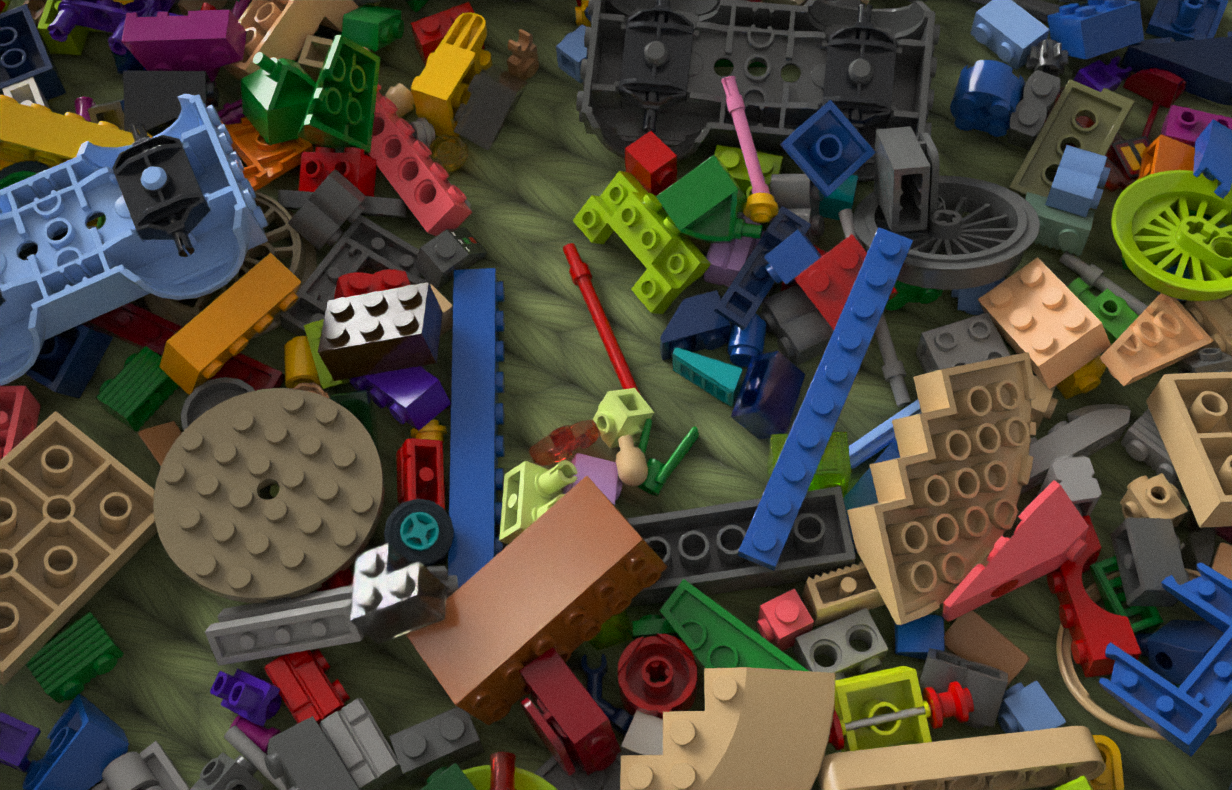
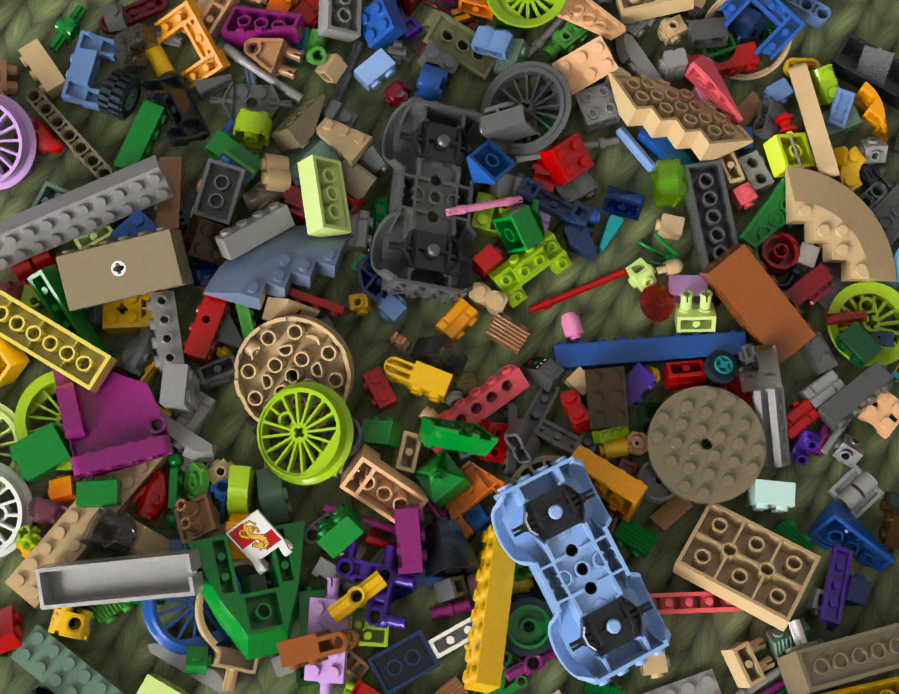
camera: 100 degrees left, 15 degrees up
(160, 616) = (771, 495): none -> light aqua brick
(527, 210) = (507, 333): none -> medium nougat brick
(532, 307) = (572, 326): none -> bright pink brick
(555, 139) = (457, 320): none -> light orange brick
(590, 177) = (491, 300): none -> tan brick
(721, 478) = (670, 226): none -> tan brick
(760, 207) = (523, 199): yellow plate -> none
(791, 258) = (553, 184): blue brick -> none
(824, 400) = (641, 165): blue plate -> none
(964, 53) = (397, 93): none -> dark red head

